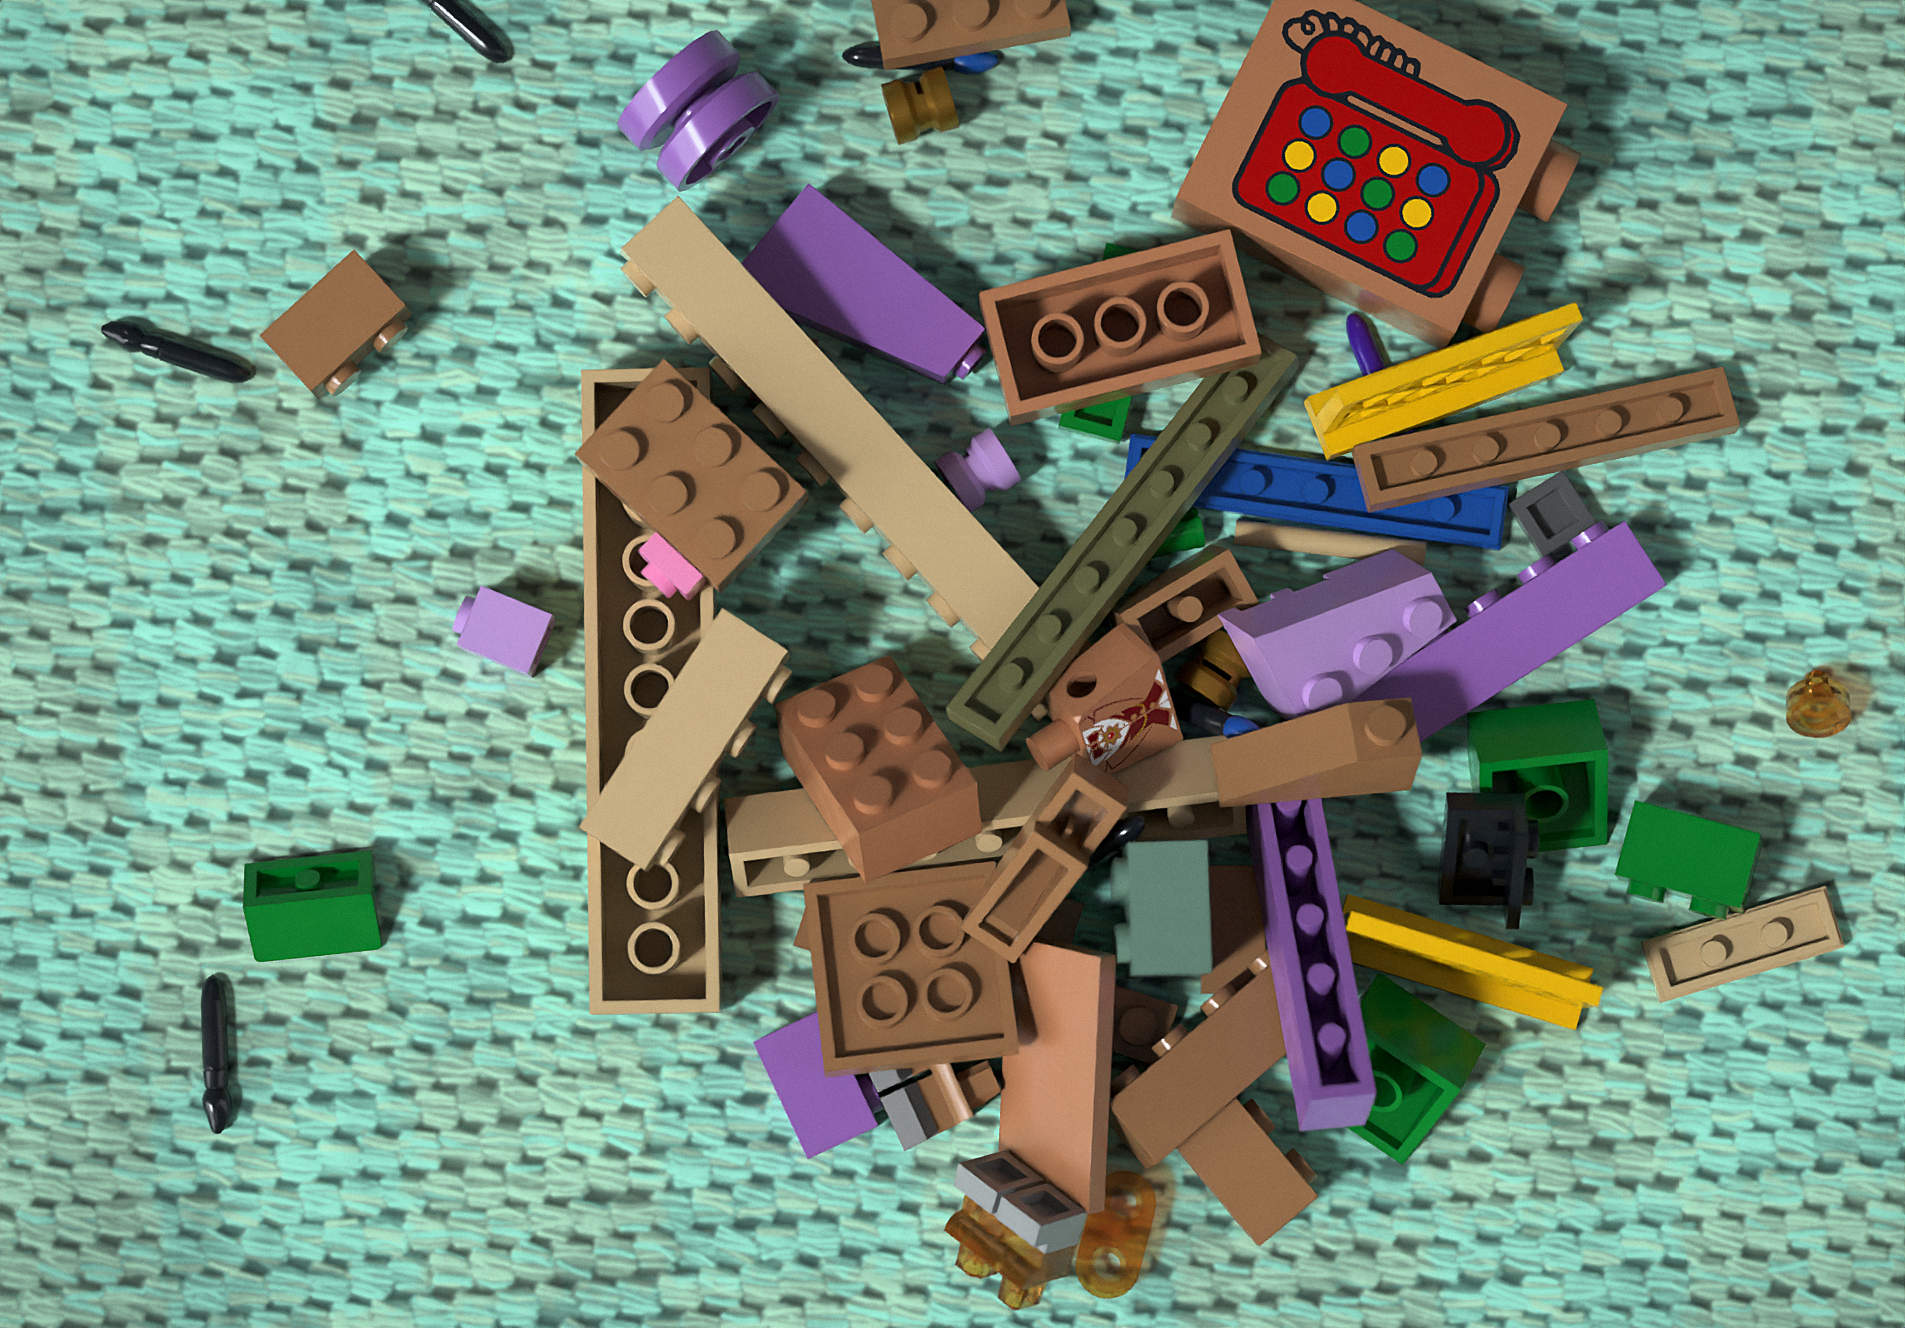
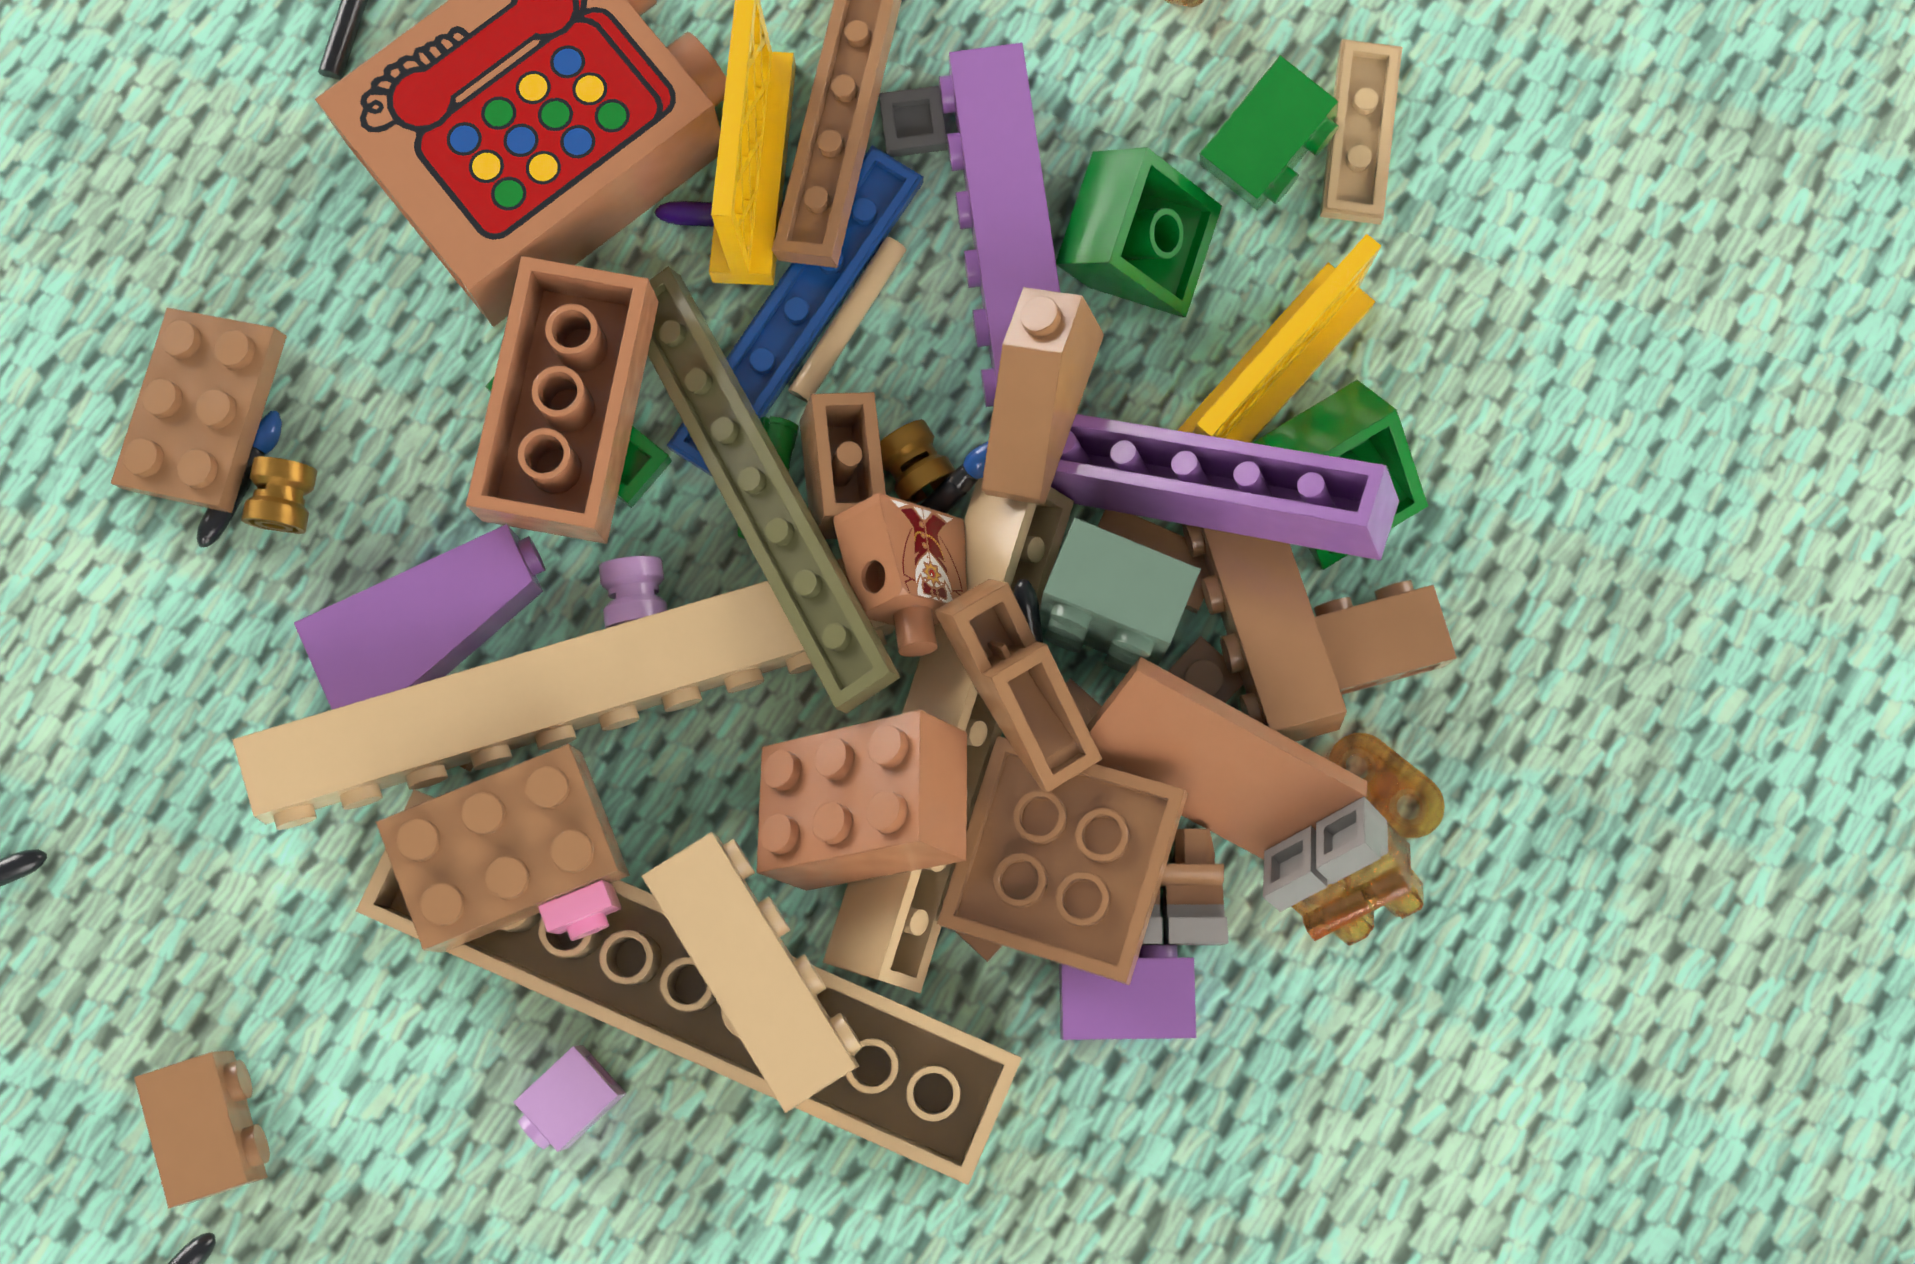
camera: 65 degrees left, 5 degrees down
(698, 110) = (172, 692): medium lavender wheel -> none
(1338, 634) = (934, 338): lavender wedge -> none
(1487, 852) = (1189, 297): black bracket -> none

